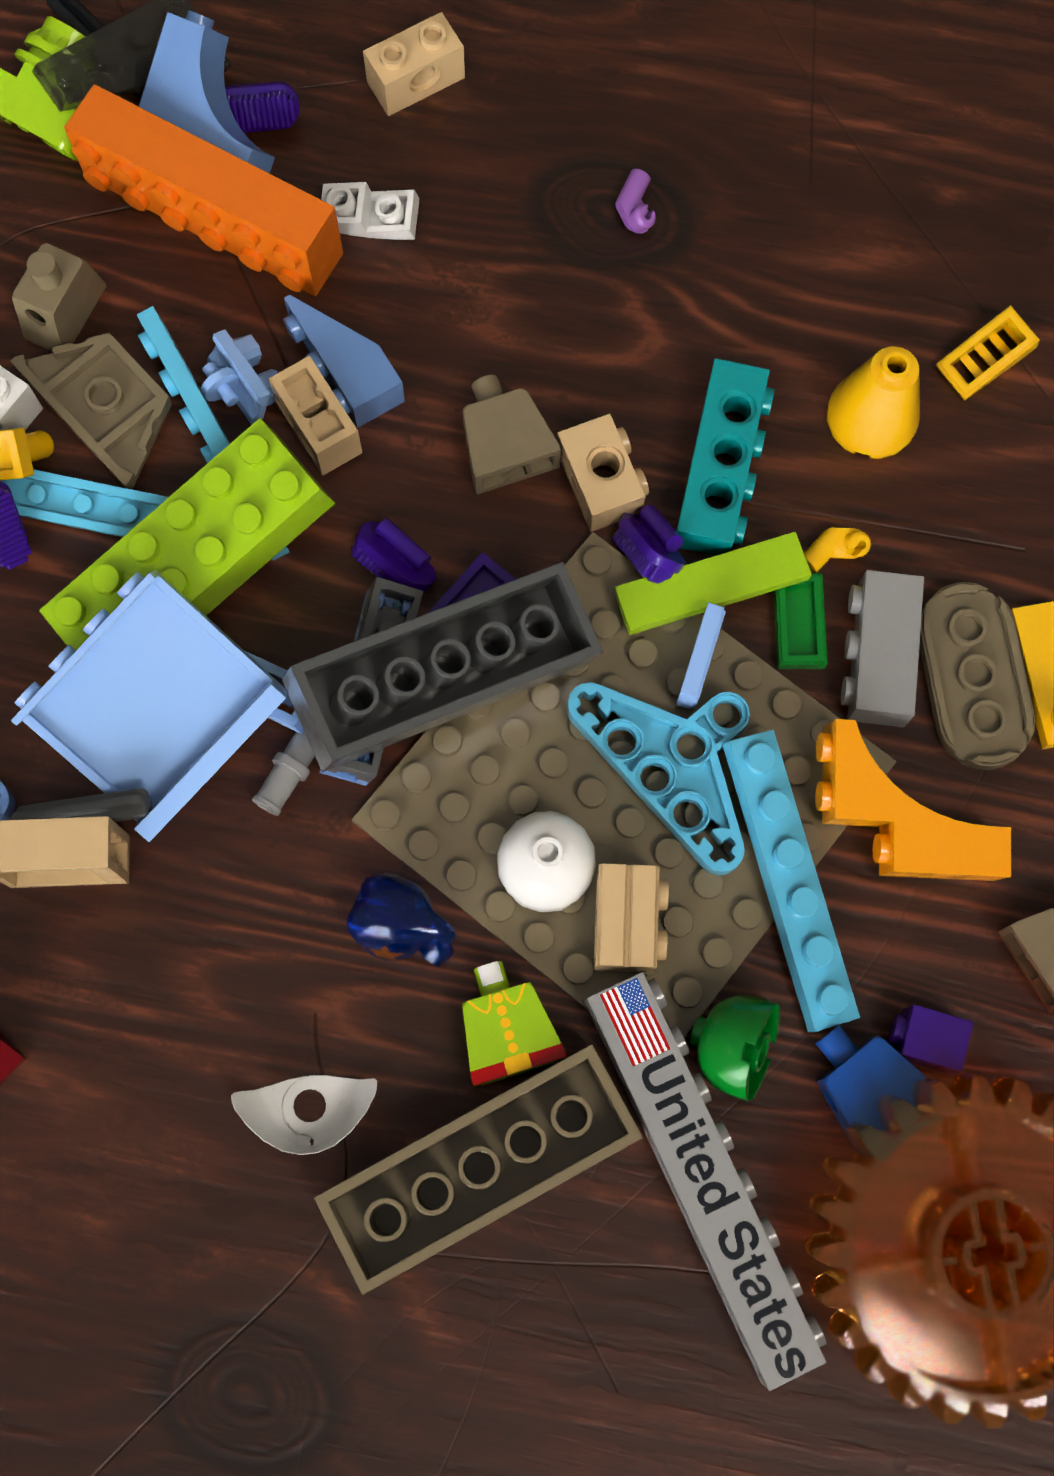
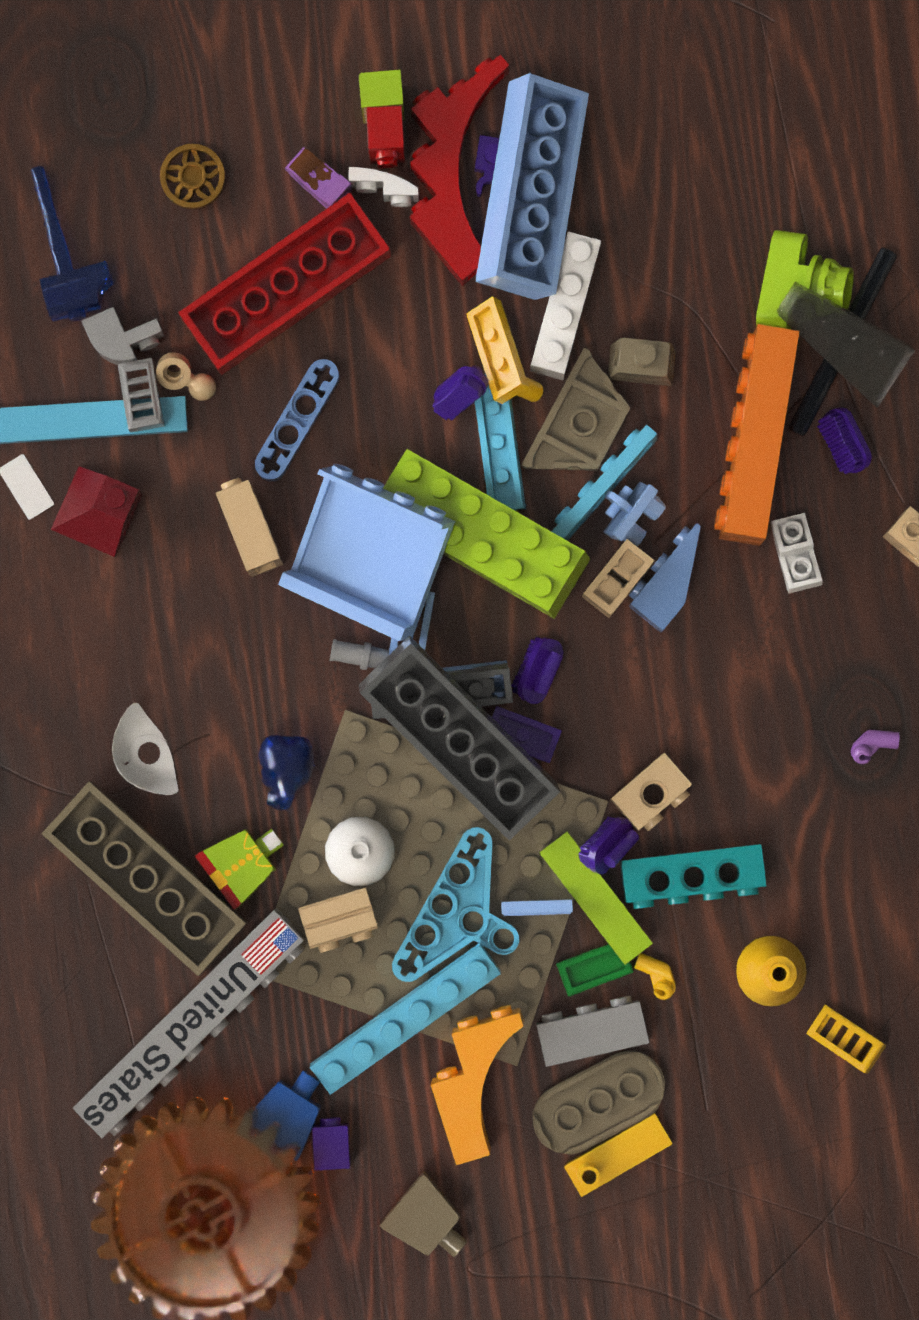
camera: 75 degrees right, 10 degrees up
(116, 805) = (284, 531): dark grey axle -> none
(190, 89) = (819, 399): medium blue arch -> none
(506, 436) = (654, 714): dark tan torso -> none
(736, 1043) = (281, 1017): green cylinder -> none

